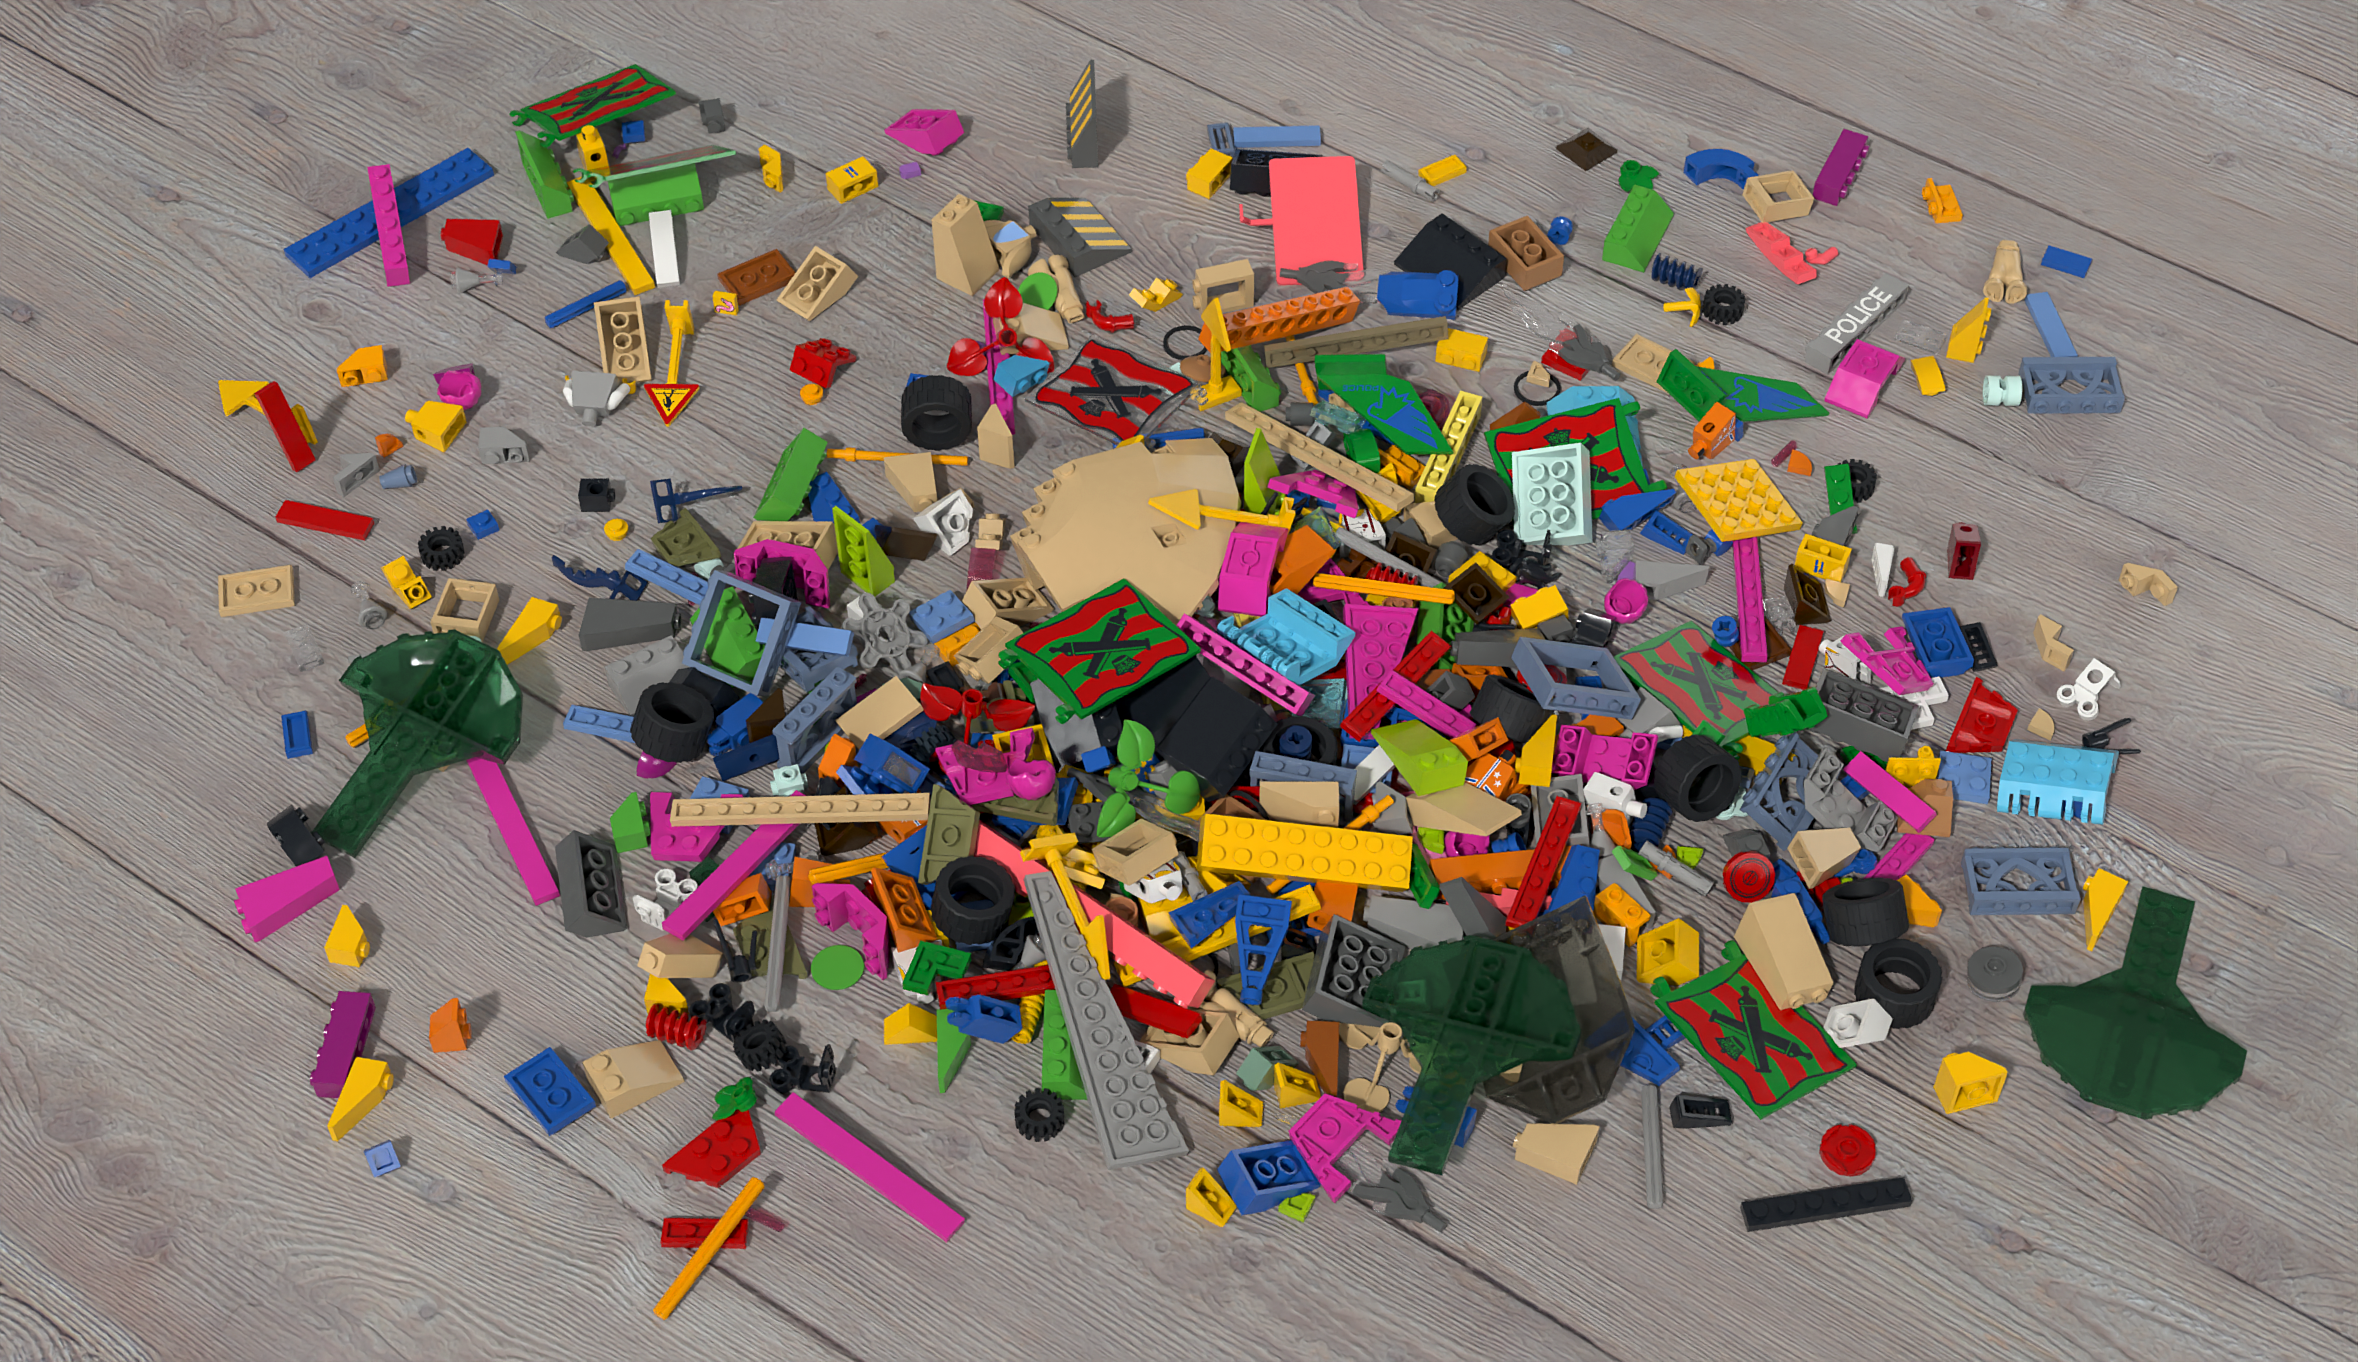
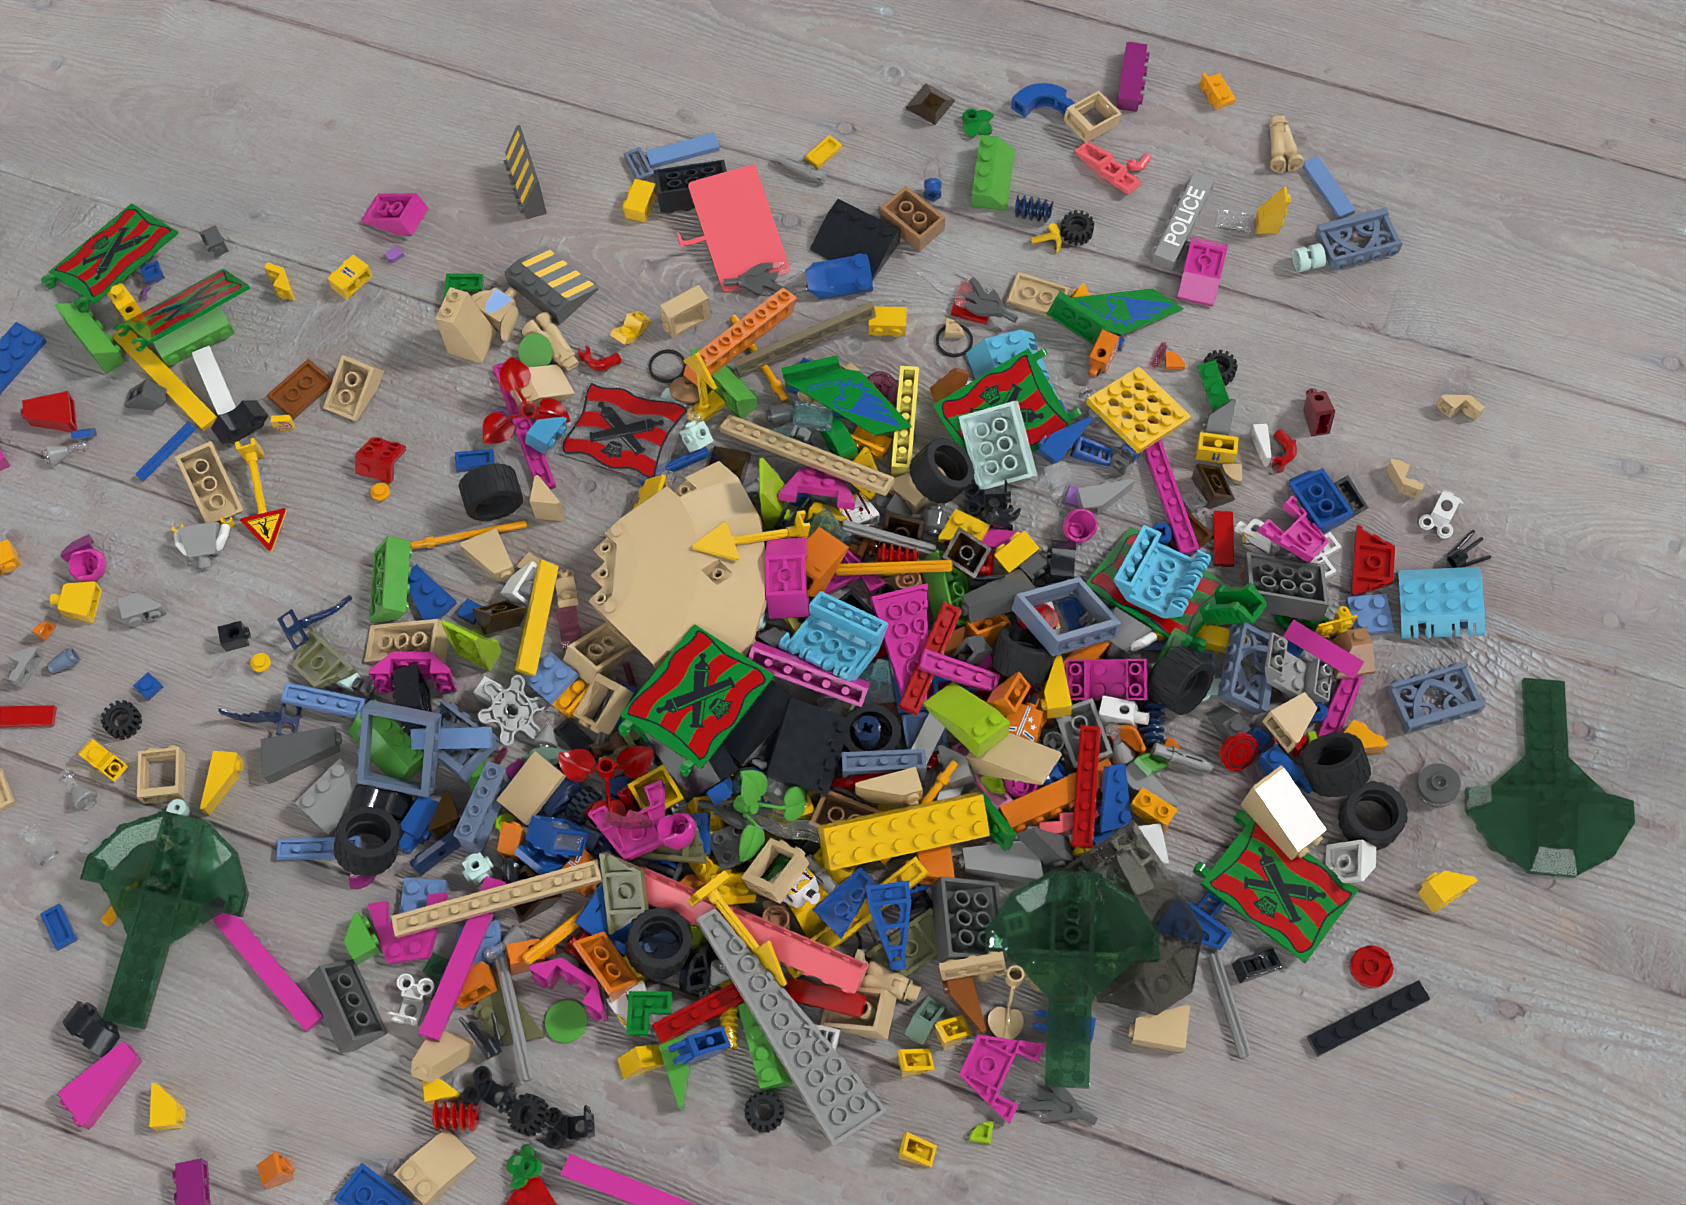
camera: 15 degrees left, 15 degrees up
(684, 286) = (239, 422): none -> black brick
(945, 549) = (536, 618): none -> yellow tile
(1194, 412) = (696, 435): none -> light aqua brick
(1266, 1176) = (953, 1116): blue slope -> none
(1341, 1013) = (972, 965): none -> tan plate
(1668, 953) = (1196, 835): yellow slope -> none
(1689, 855) = (1186, 741): lime tile -> none
(1701, 667) = (1159, 576): none -> medium azure slope
(1927, 375) = (1249, 256): yellow slope -> none
(2042, 725) = (1415, 552): tan tile -> none
(2066, 261) = (1324, 123): blue tile -> none
(2100, 901) = (1498, 701): yellow slope -> none

